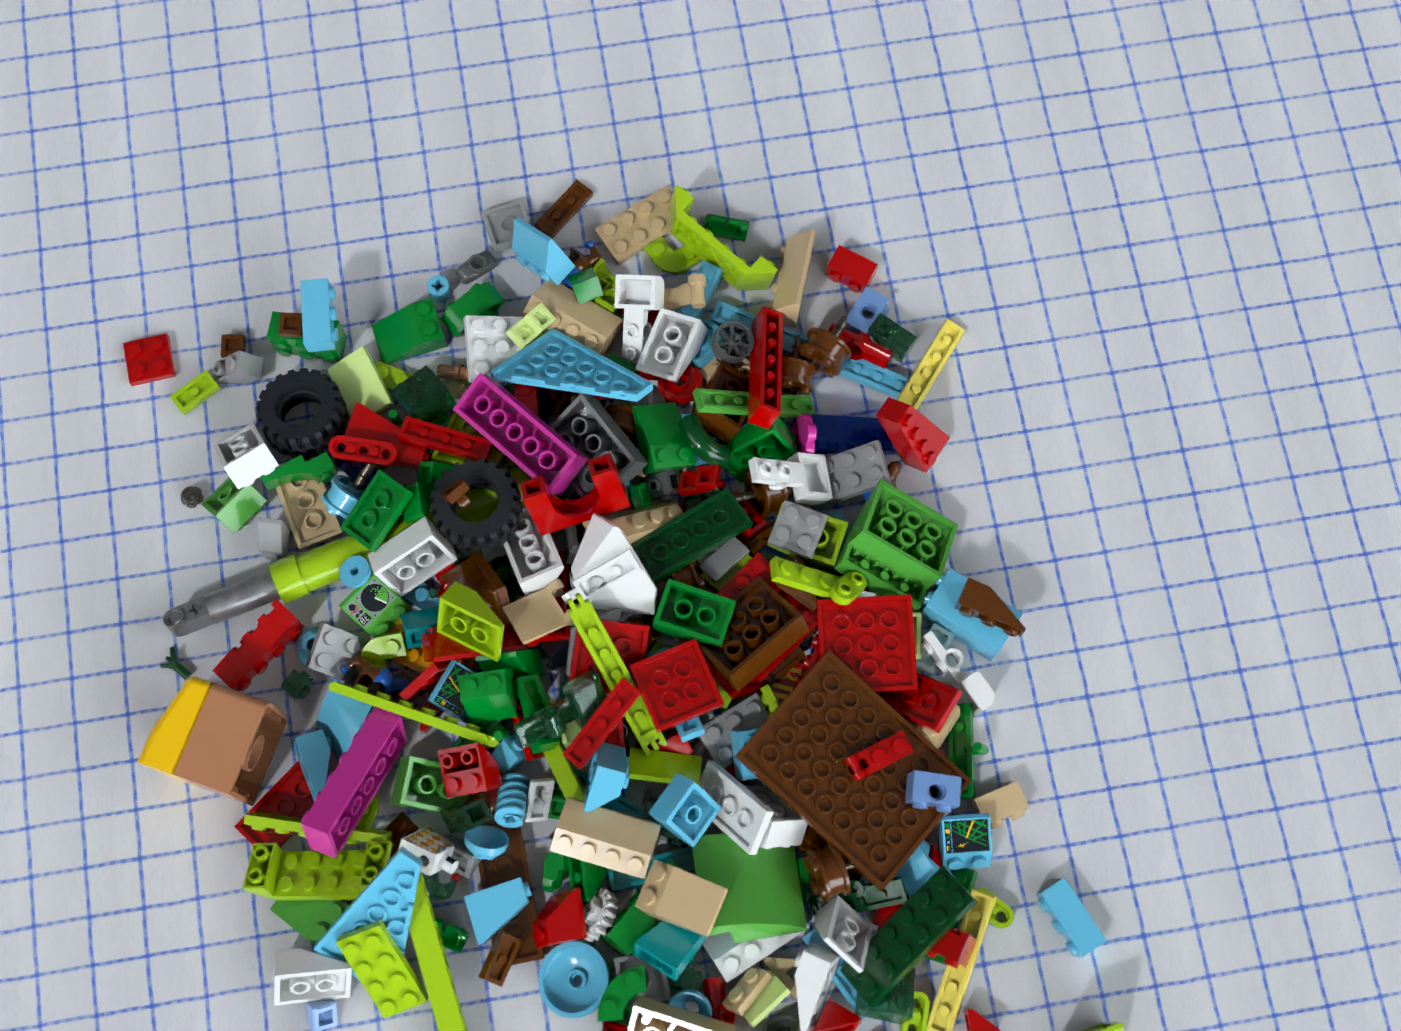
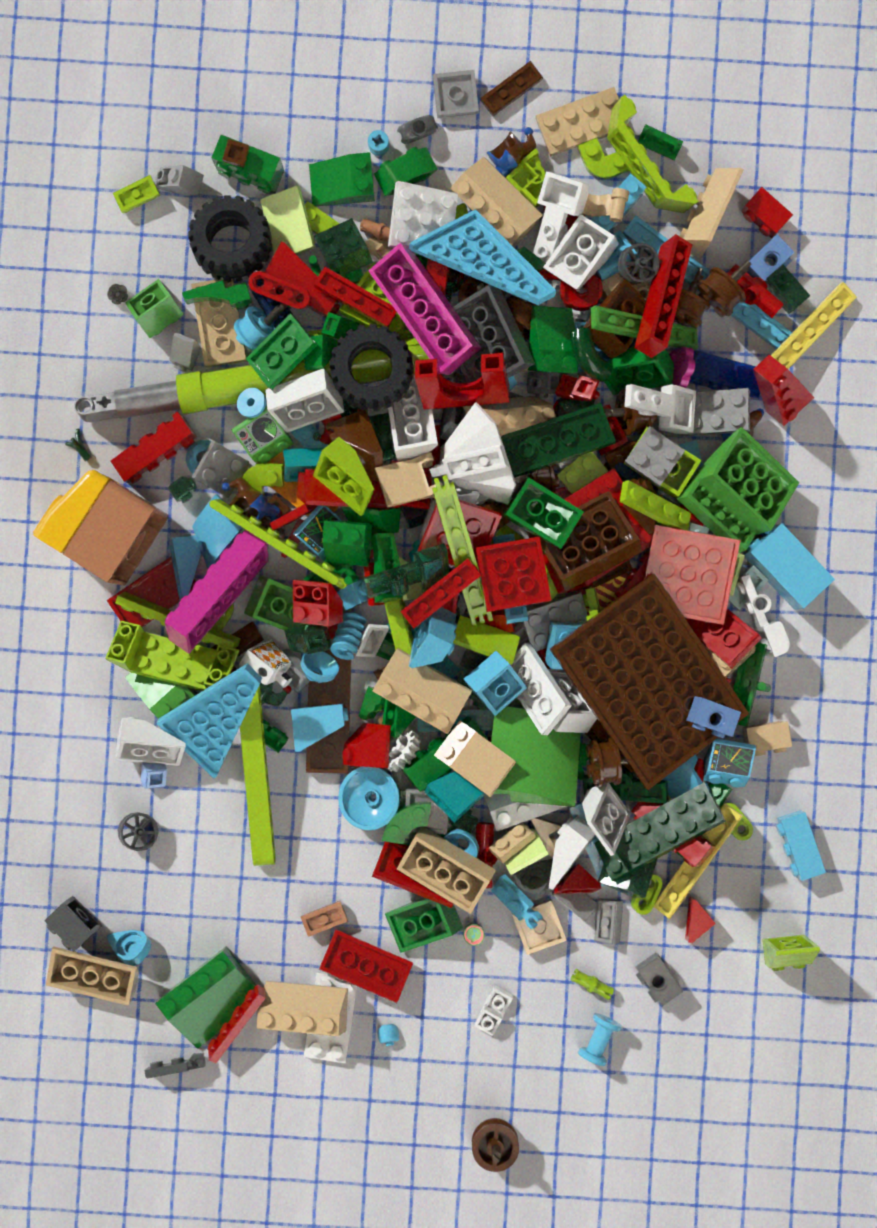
camera: 15 degrees right, 15 degrees up
(149, 359) = (99, 151): red plate -> none
(232, 343) = (178, 155): reddish brown plate -> none
(245, 456) = (172, 269): white brick -> none
(318, 315) = (262, 149): medium azure brick -> none
(382, 969) = (211, 752): lime plate -> none
(456, 493) = (356, 356): reddish brown tile -> none
(500, 958) = (311, 766): reddish brown plate -> none
(531, 326) = (456, 204): yellowish green slope -> none
(539, 253) = (479, 132): medium azure slope -> none
(585, 285) = (515, 174): panel -> none
(640, 495) = (520, 388): green plate -> none
(724, 559) = (581, 467): light grey slope -> none
(848, 588) = (685, 521): lime plate -> none
(879, 755) = (675, 676): red plate -> none
(983, 603) = (804, 564): reddish brown slope -> none

